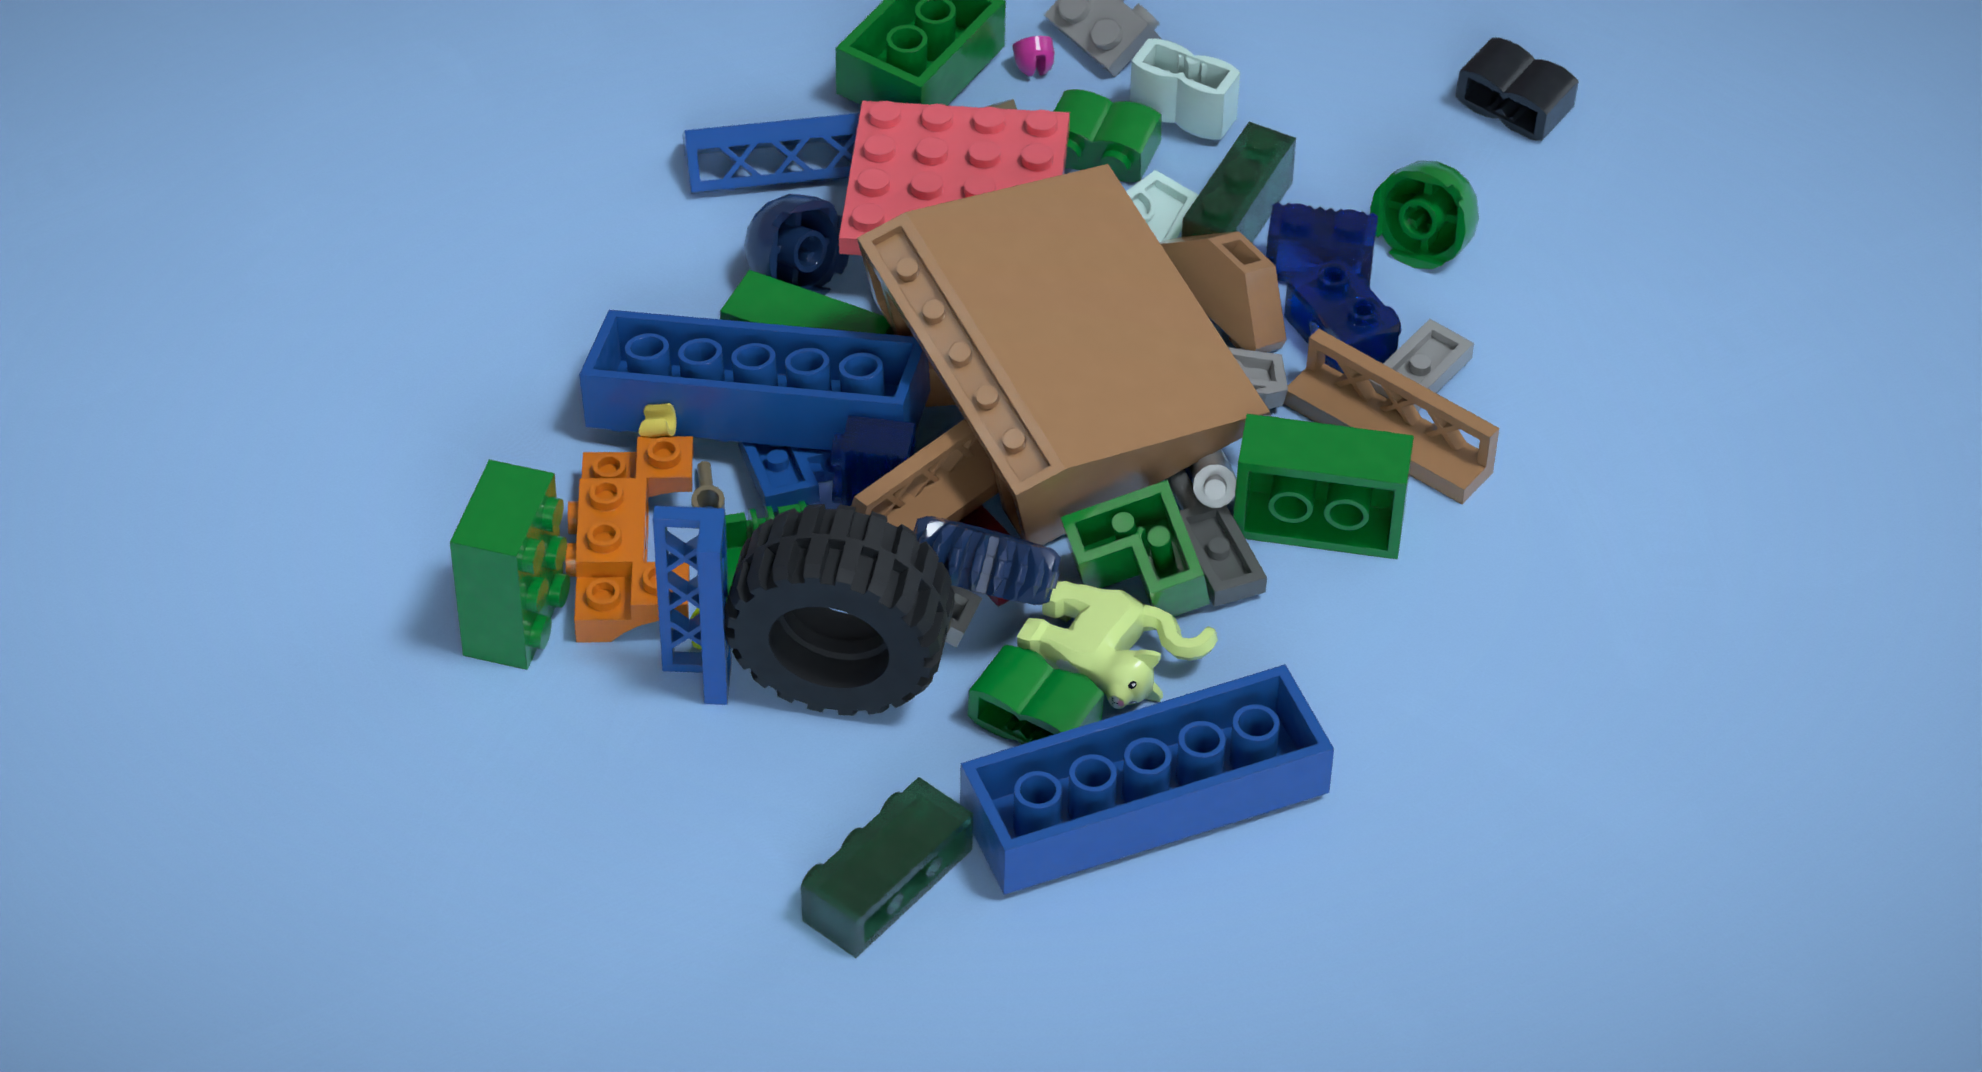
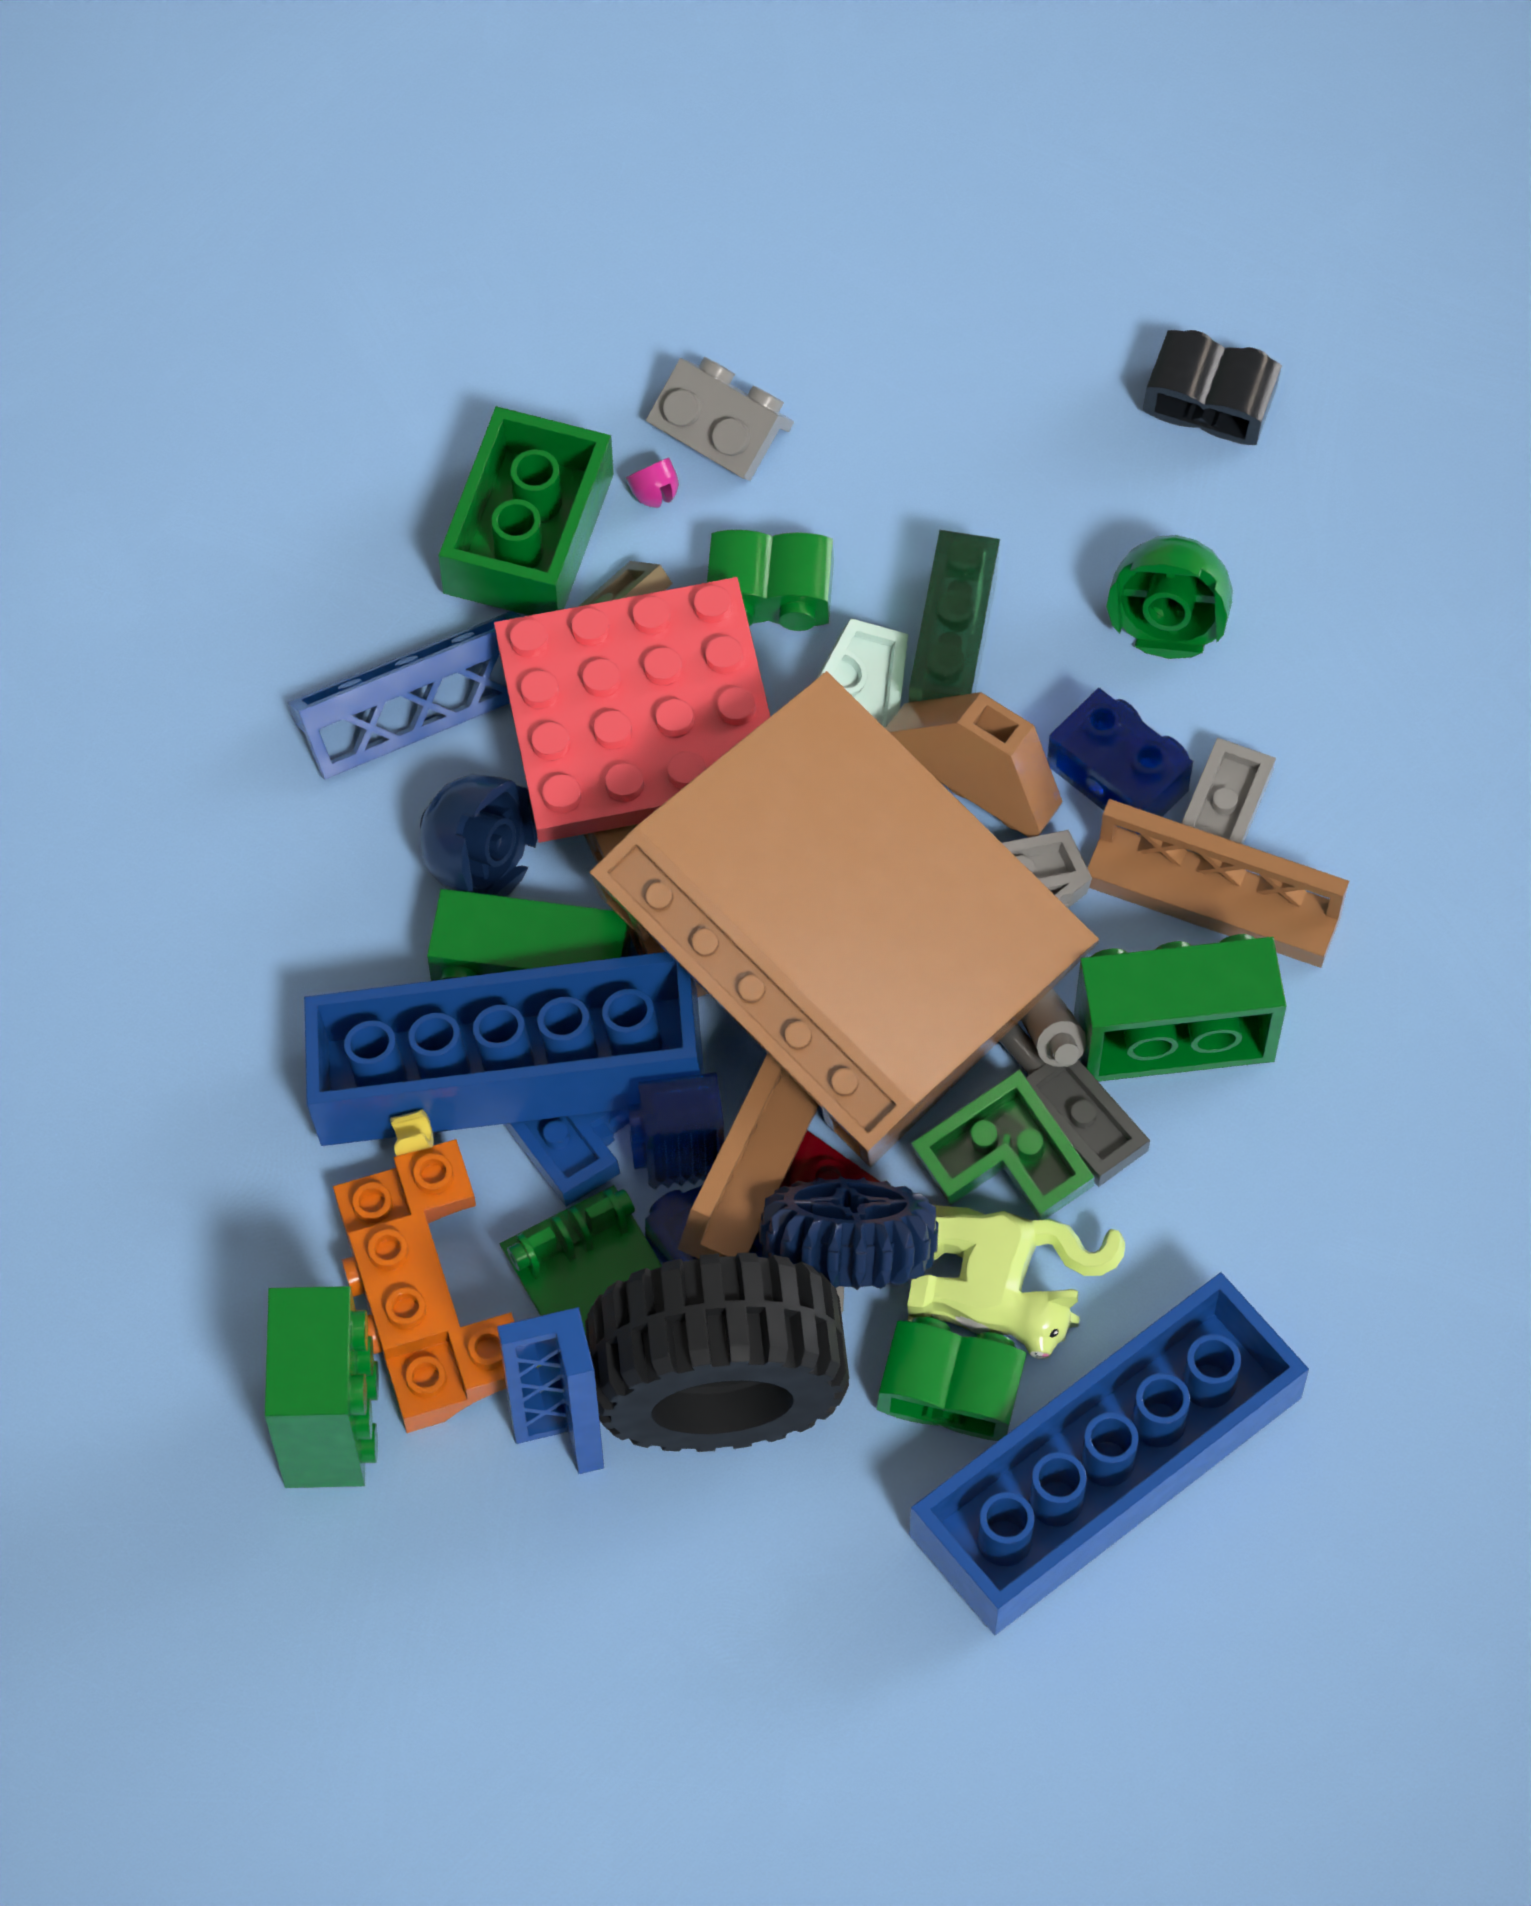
camera: 15 degrees left, 15 degrees up
(707, 493) = (486, 1192): dark tan hand -> none
(886, 866) = (858, 1643): clear green brick -> none
(1186, 88) = (846, 494): light aqua brick -> none
(1310, 237) = (1062, 669): clear blue brick -> none

